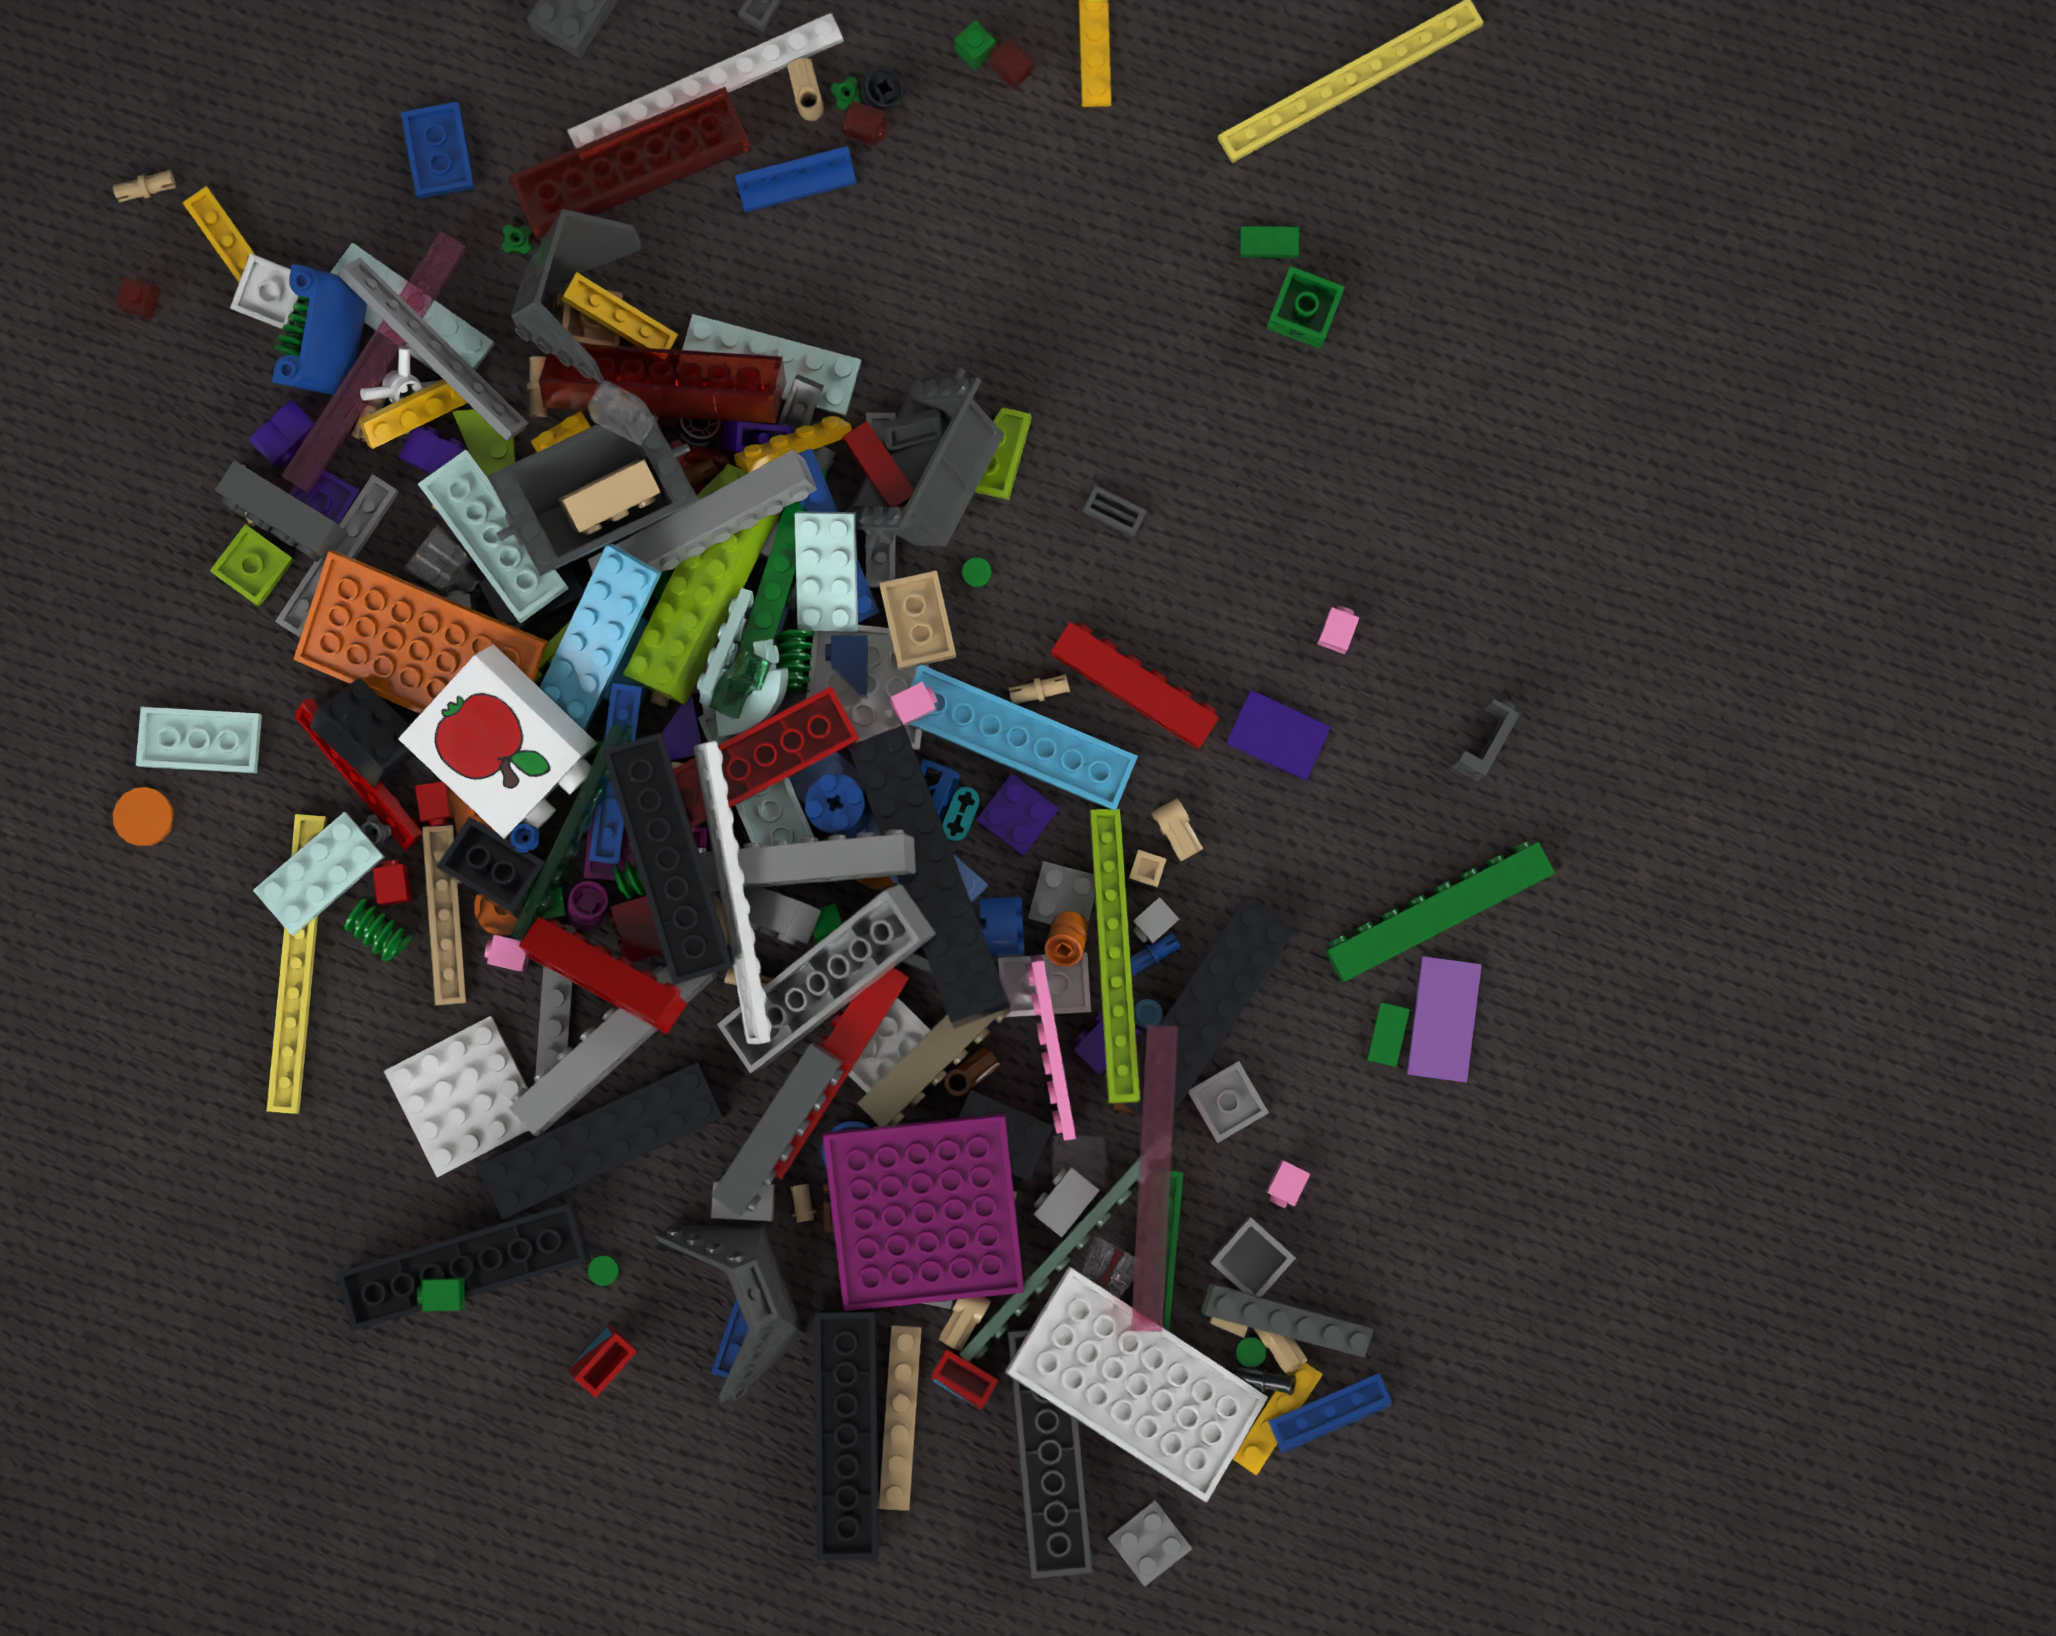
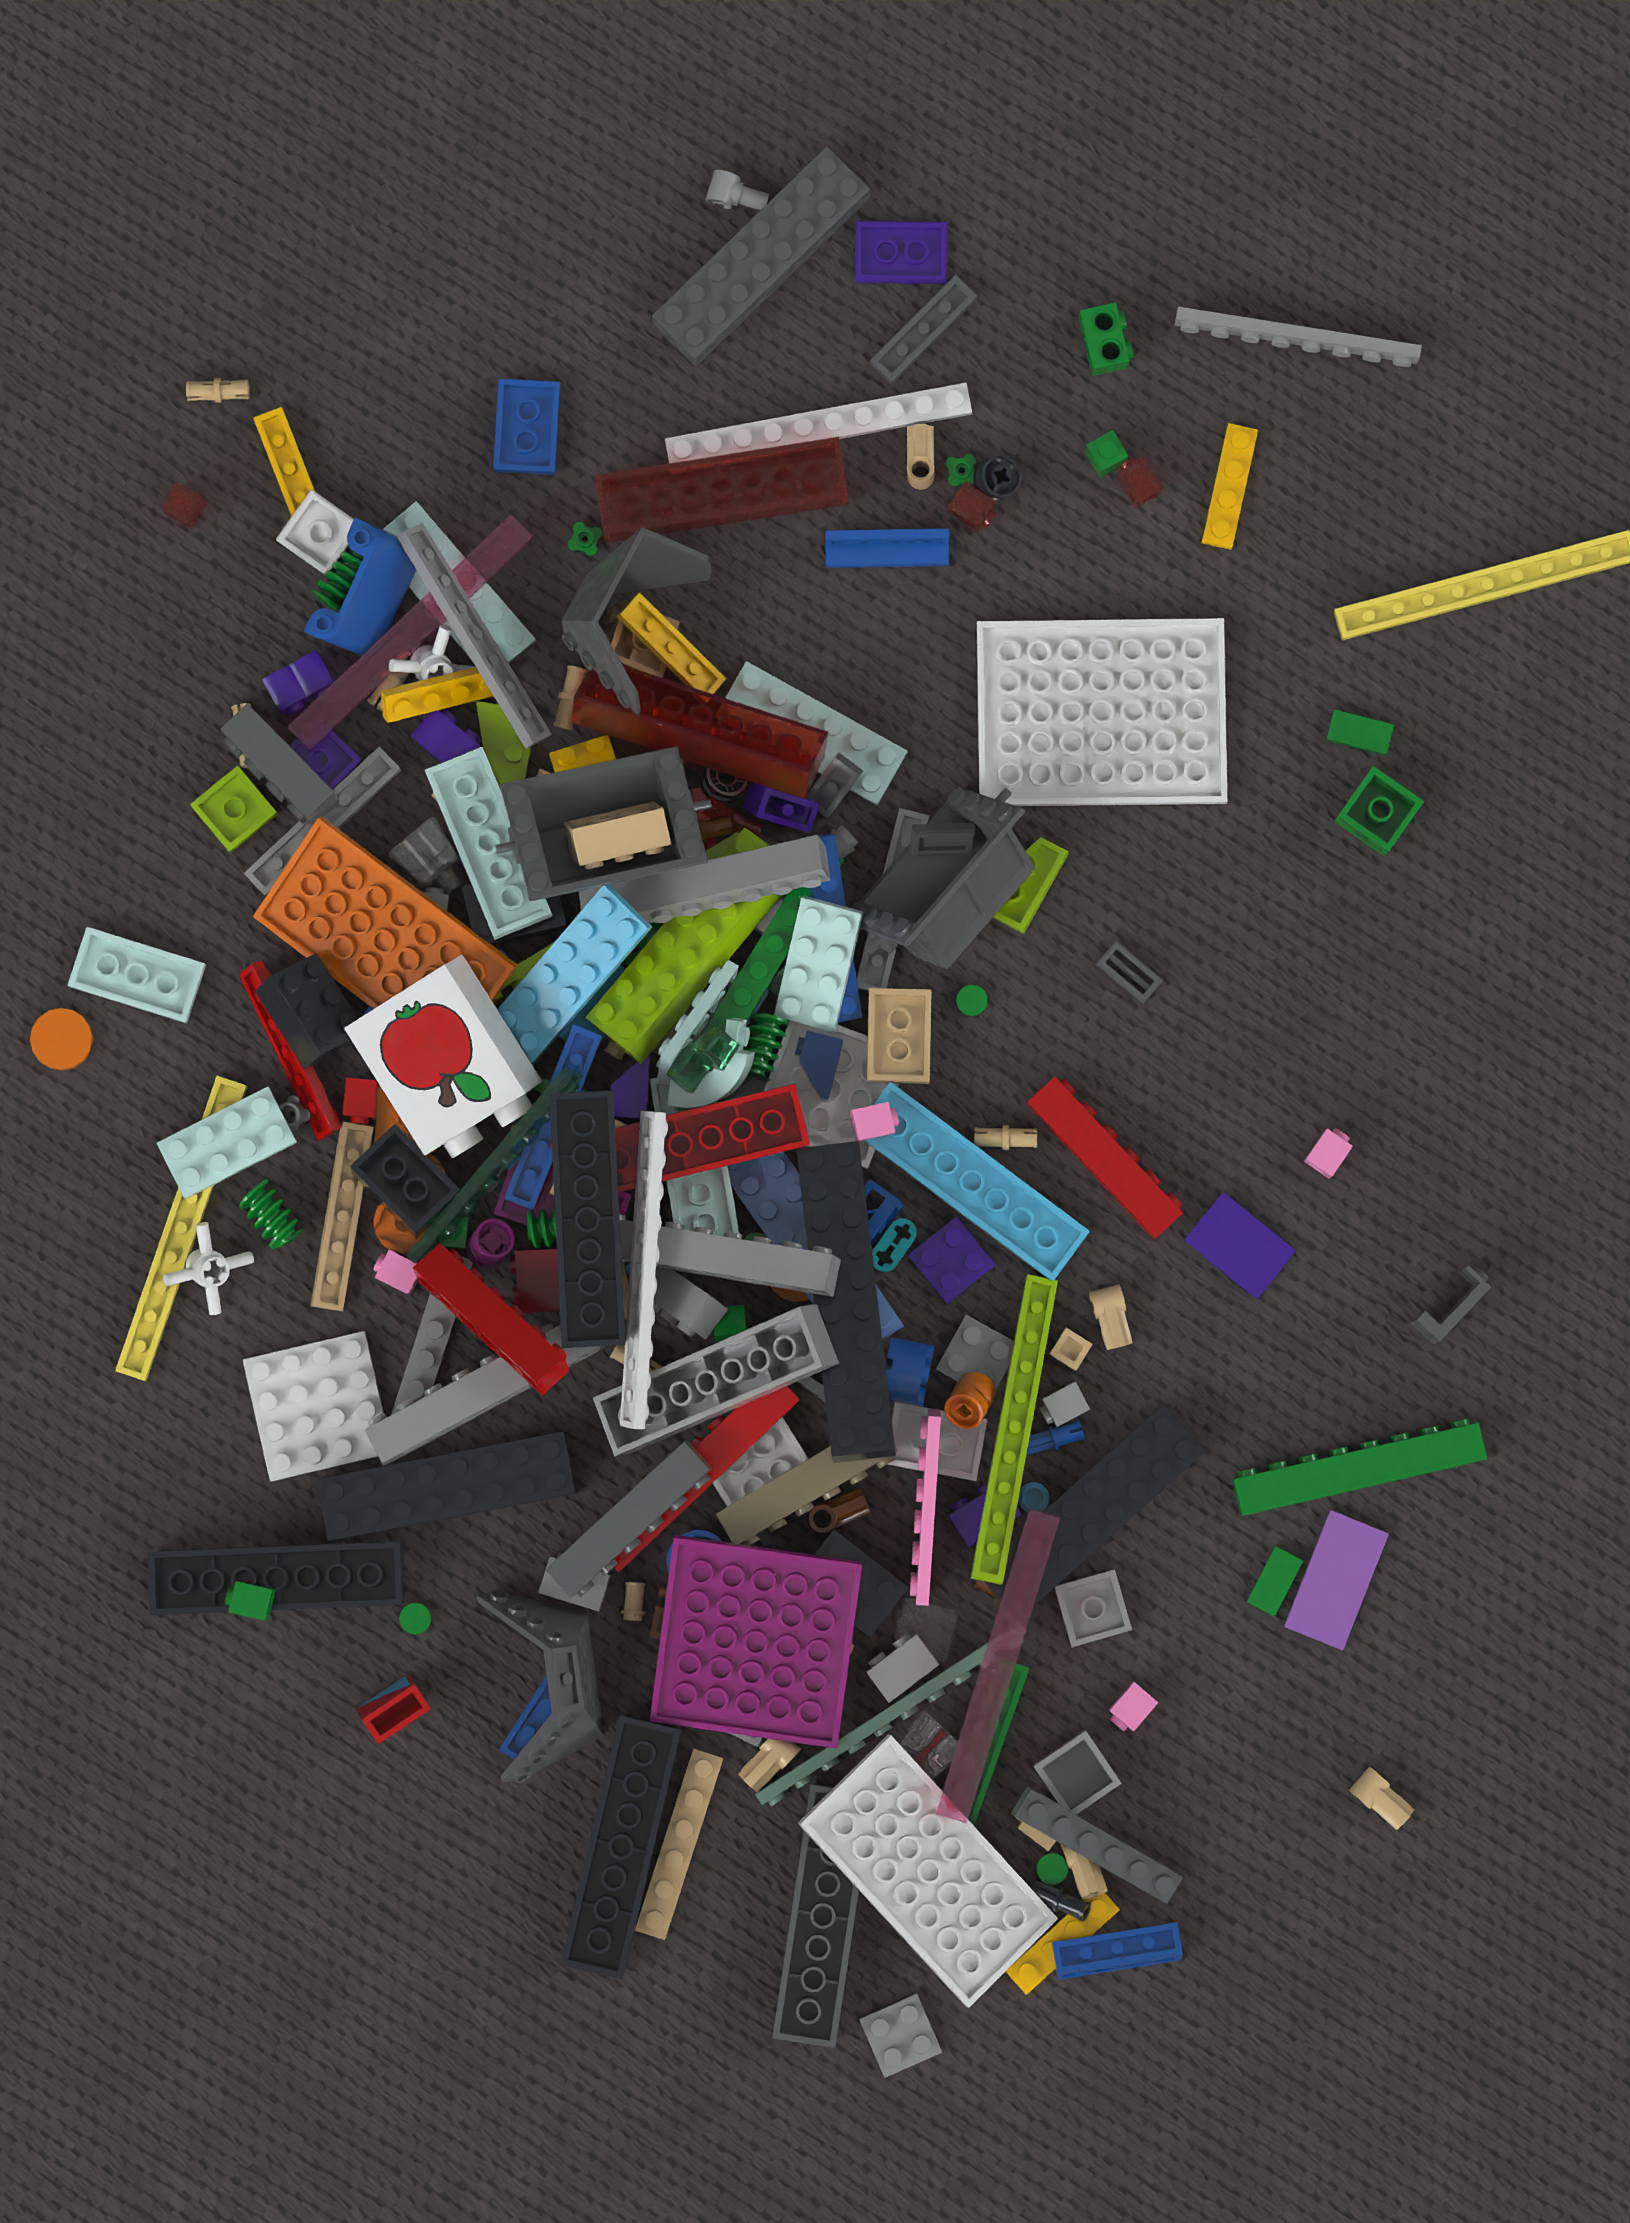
camera: 20 degrees right, 0 degrees up
(319, 990) = (210, 1261): none -> white bar
(392, 883) = (297, 1170): red brick -> none
(517, 837) = (440, 1154): blue plate -> none
(616, 408) = (648, 750): clear torso -> none
(805, 437) = (822, 822): yellow plate -> none
(833, 790) = (770, 1189): blue brick -> none
(878, 465) = (899, 867): red tile -> none
(964, 1379) = (753, 1821): red brick -> none
(1030, 279) = (1102, 711): none -> white plate
(1532, 1207) = (1377, 1794): none -> tan piece

